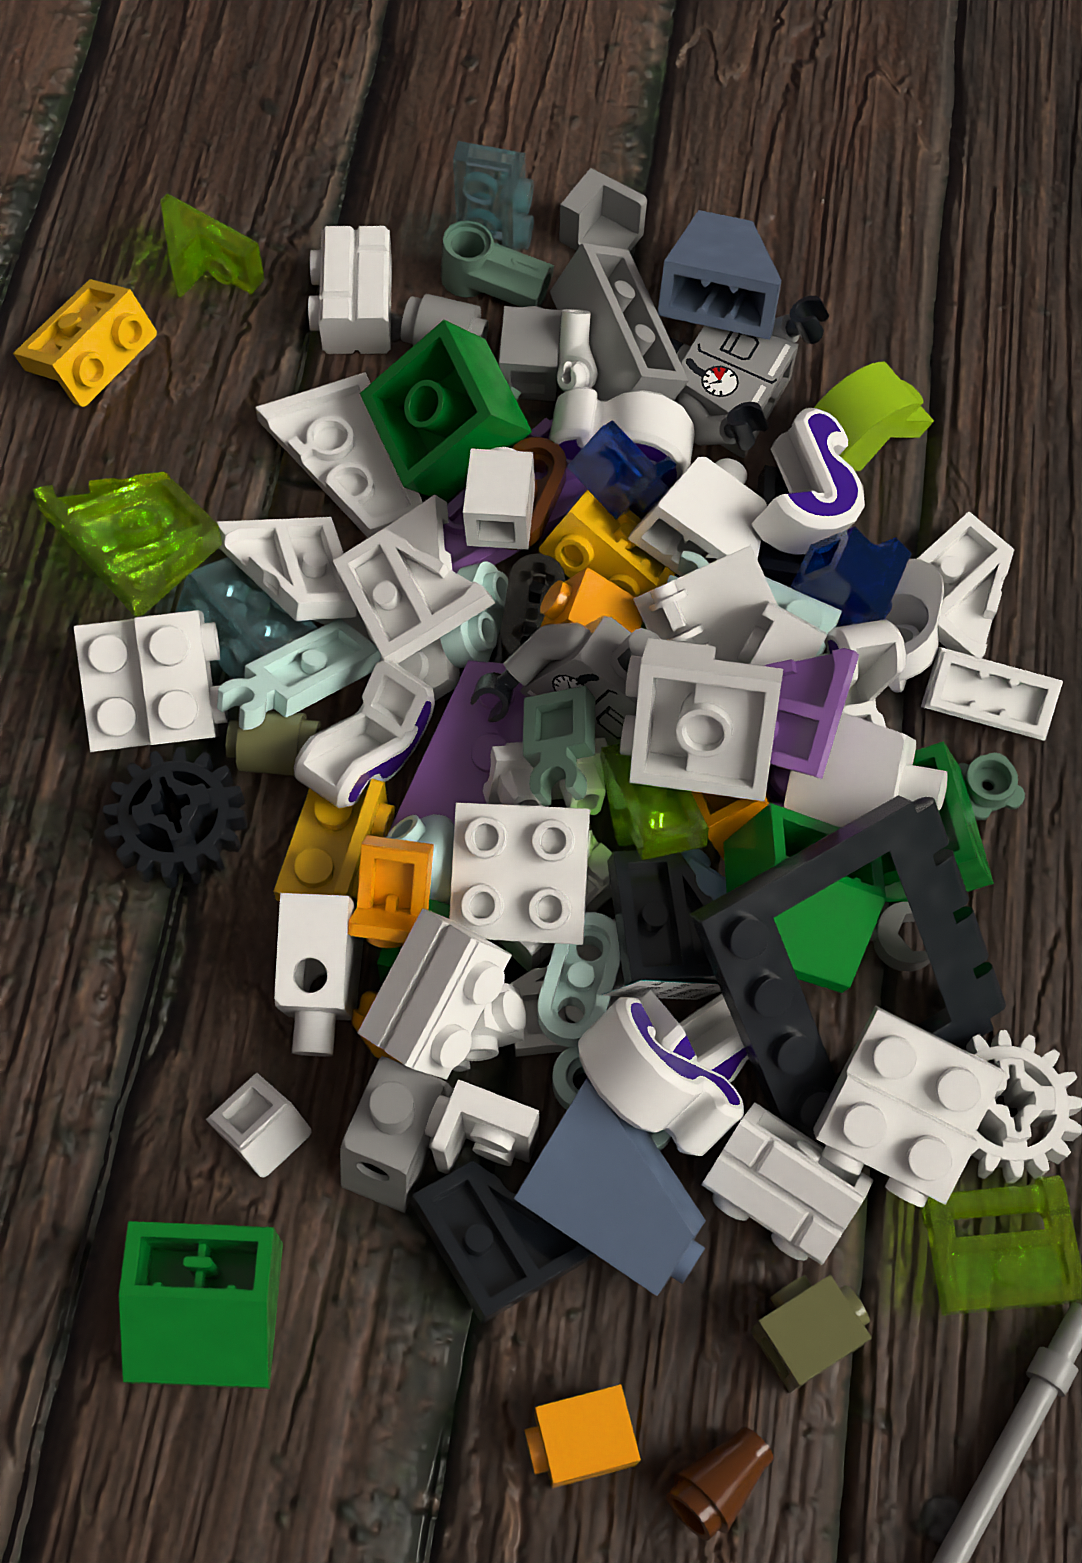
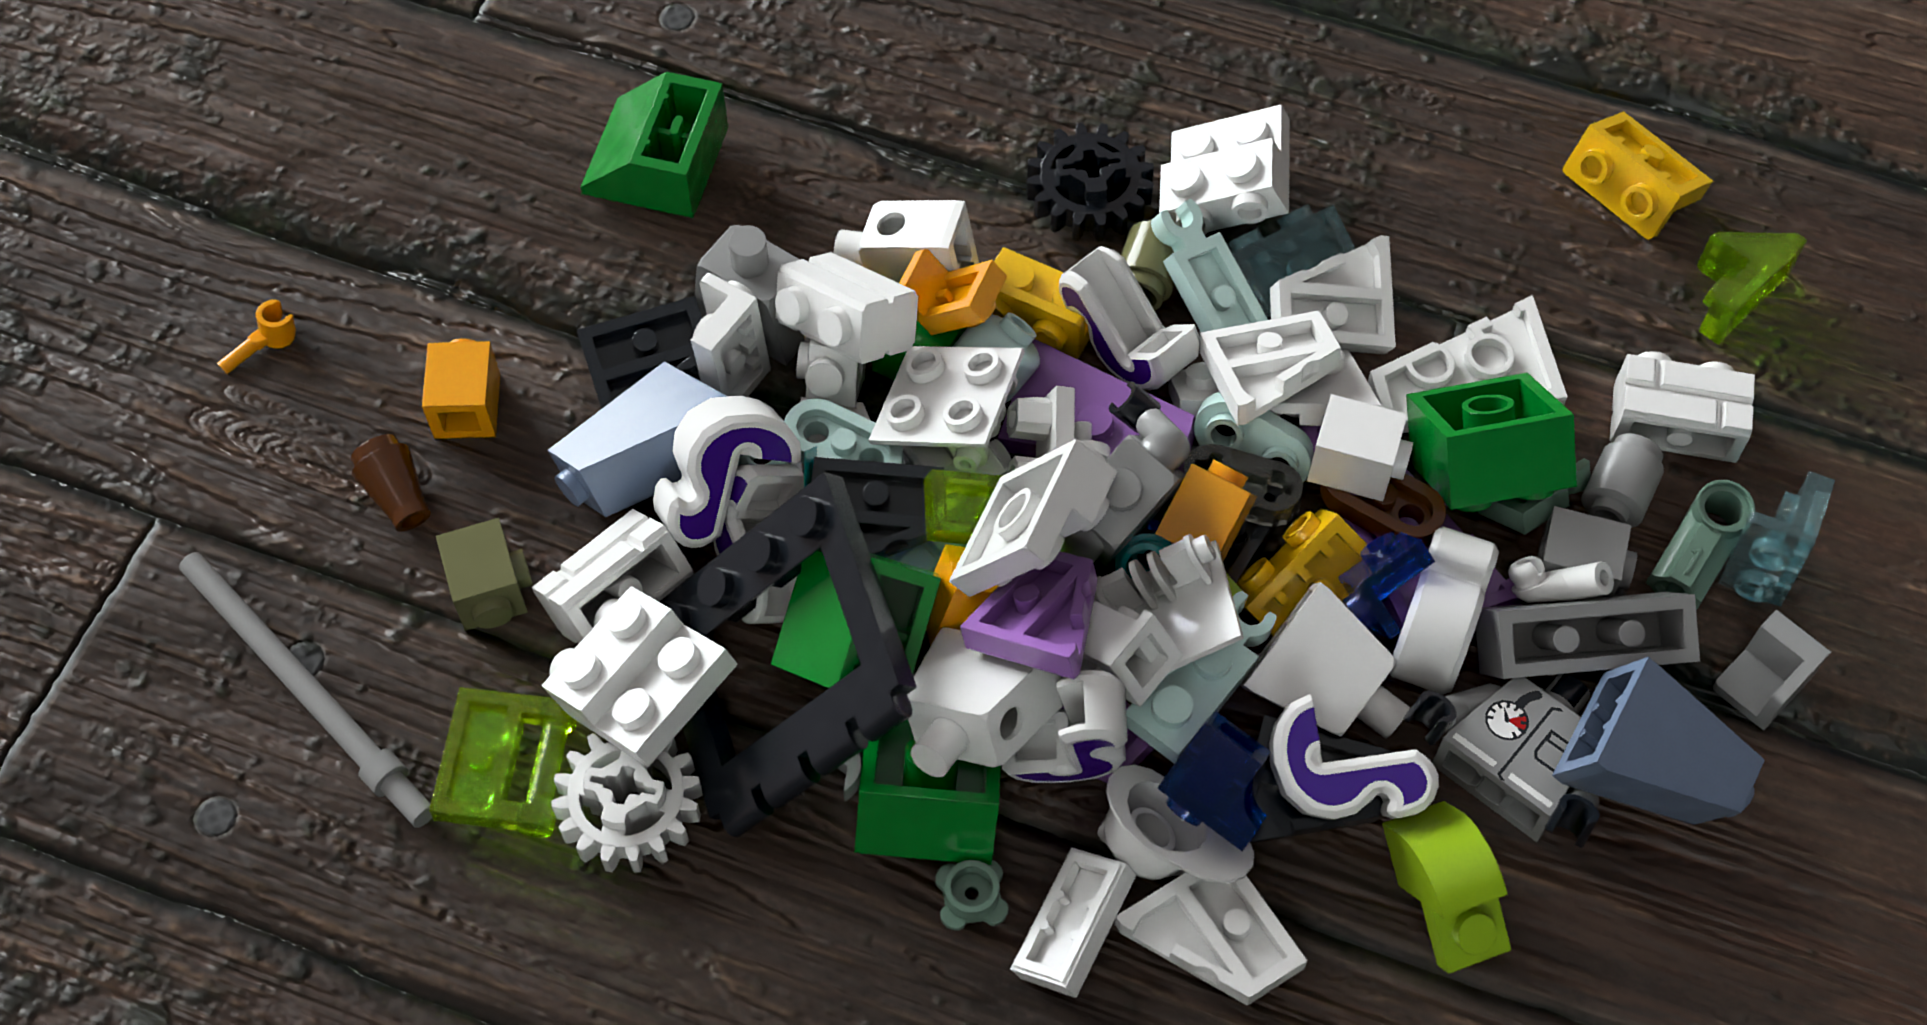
camera: 105 degrees right, 5 degrees down
(134, 534) = (1387, 174): clear neon green wing -> none
(260, 1125) = (797, 215): white slope -> none
(556, 734) = (1053, 425): sand green plate -> none

